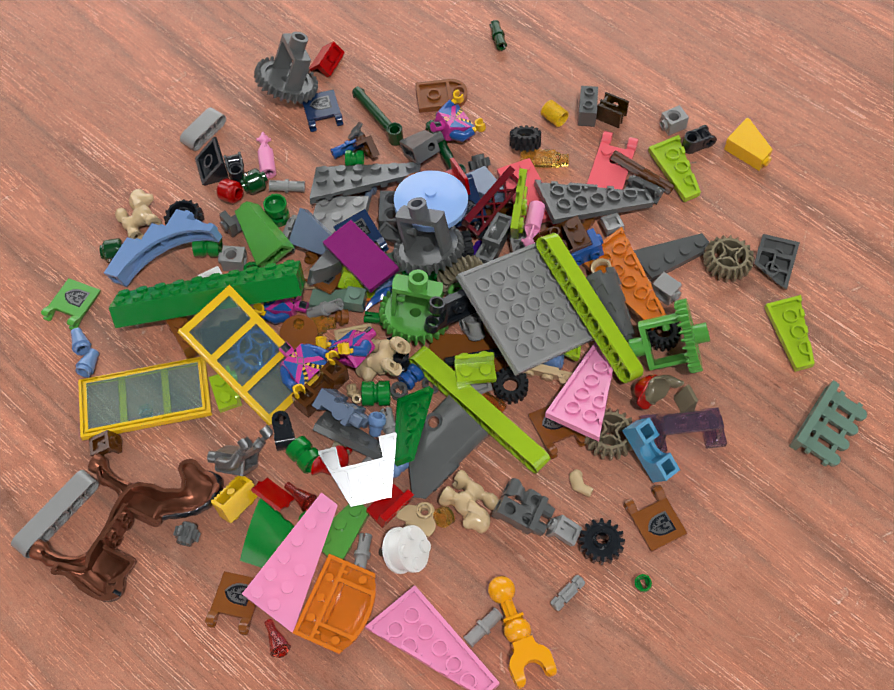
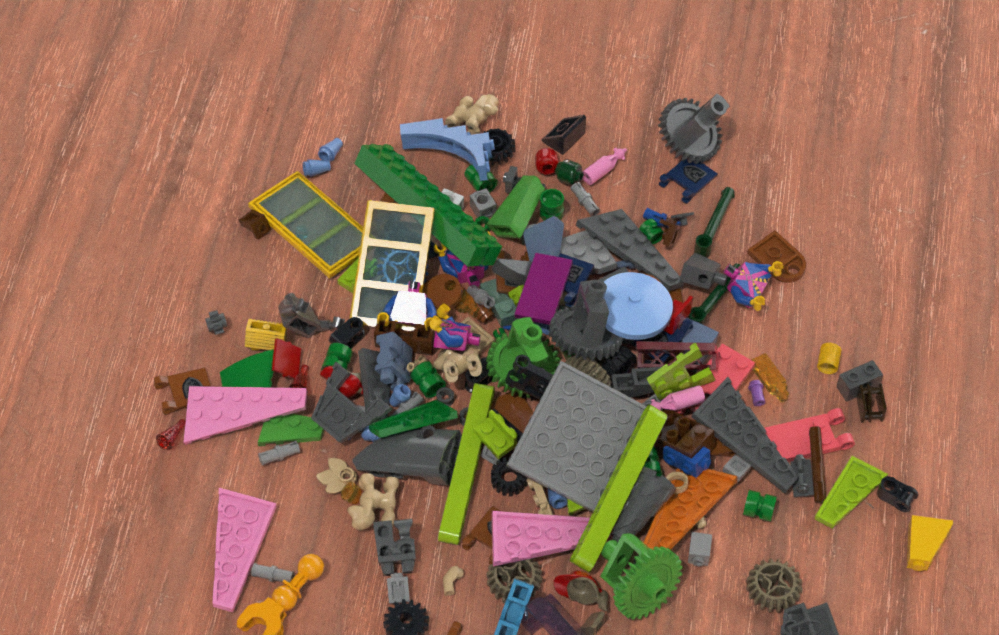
camera: 55 degrees right, 5 degrees down
(55, 512) = (177, 228): light grey beam -> none
(72, 300) = (363, 123): bright green flag -> none
(110, 248) = (427, 113): dark green head -> none
(139, 500) = (221, 272): copper animal -> none
(203, 129) = (595, 104): light grey beam -> none
(235, 166) = (575, 149): black piece -> none
(327, 59) = (745, 150): red panel -> none
(338, 605) = (223, 458): orange slope -> none
(386, 509) = (329, 447): red panel -> none
(405, 549) = (298, 477): white wheel -> none
(411, 376) = (458, 396): blue wheel -> none
(479, 161) = (722, 326): dark grey gear -> none
(498, 35) = (886, 264): dark green pin -> none
(499, 404) = (482, 477): clear orange pin -> none
(525, 138) = (778, 349): black tyre -> none
(550, 174) = (757, 393): none -> medium lavender pin
(567, 593) = (343, 621): light grey axle -> none
(652, 229) = (759, 505): none -> green wheel
(670, 255) = (741, 535): dark grey wing -> none
(673, 120) = (904, 468): light grey brick -> none

